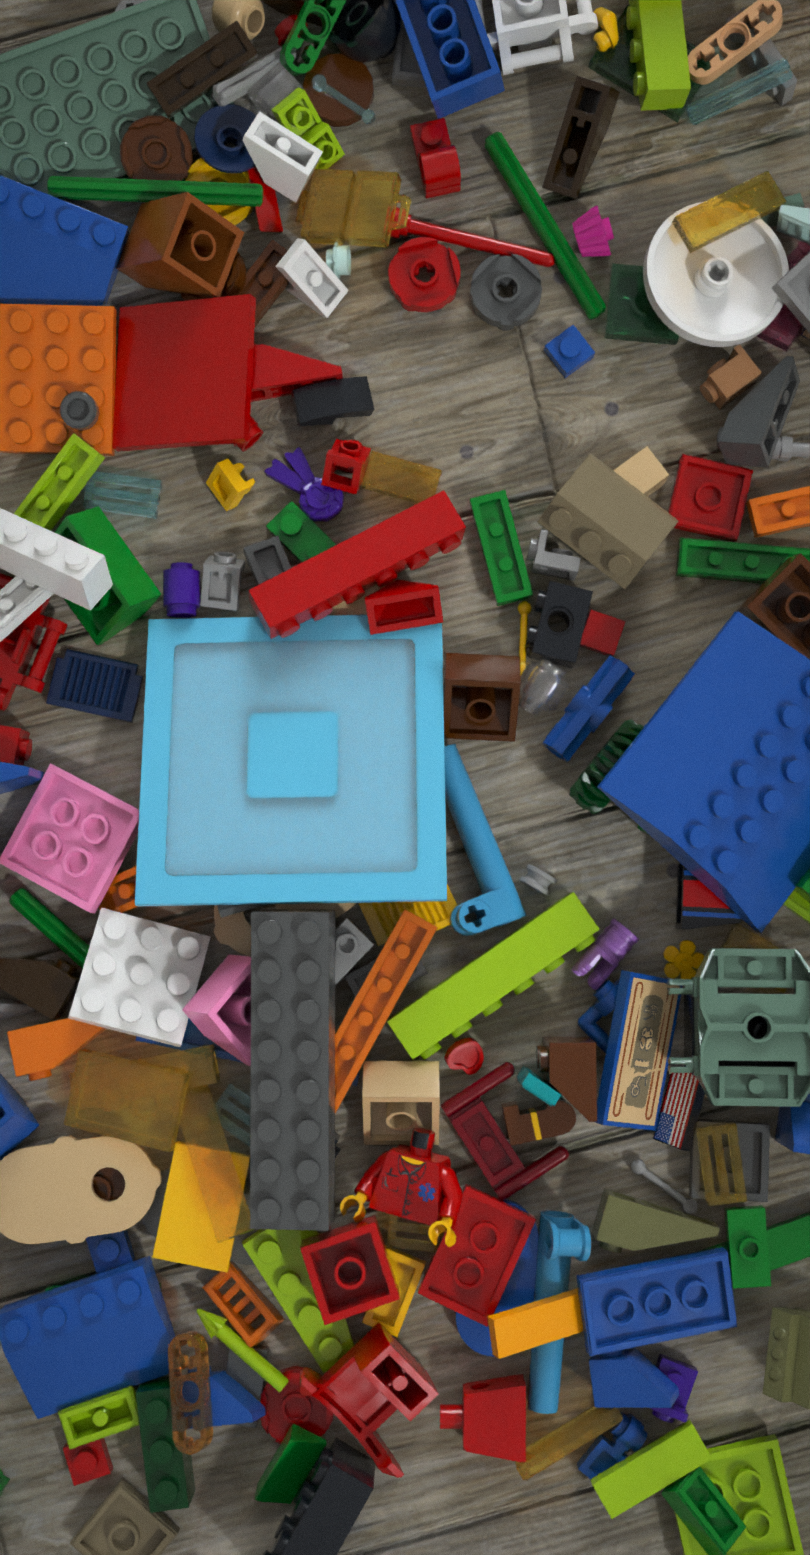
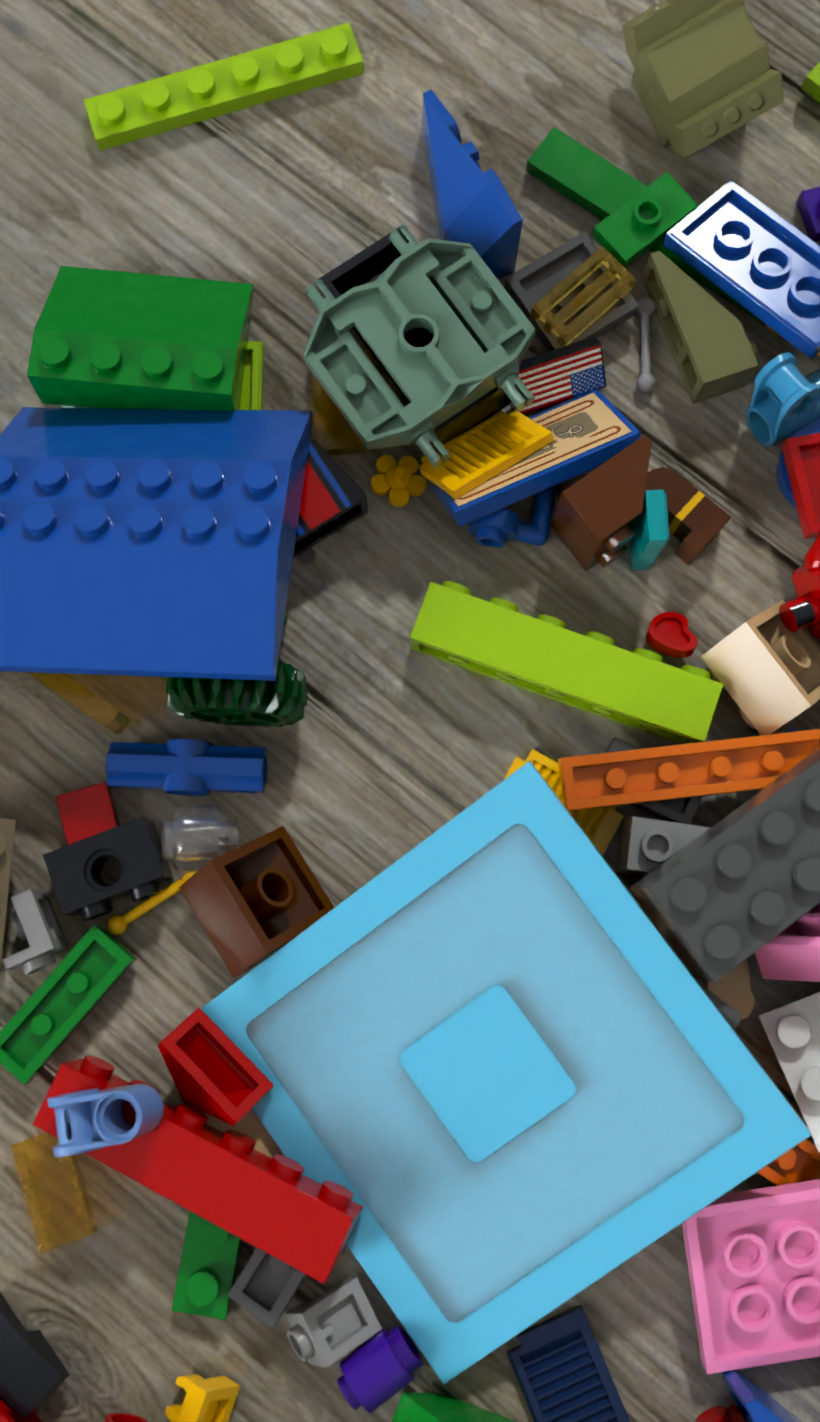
camera: 130 degrees left, 5 degrees down
(315, 500) = (143, 1277): dark purple piece -> none
(349, 457) = (68, 1278): red brick -> none
(421, 525) = (95, 1117): none -> medium blue piece
(487, 1141) = (741, 547): dark red plate -> none
(499, 897) = (476, 716): dark azure axle -> none
(538, 880) = (423, 689): light grey bush -> none
(612, 947) = (451, 561): medium lavender hinge -> none
(659, 1024) = (486, 452): none -> yellow window
(665, 677) = (84, 700): none -> clear yellow tile

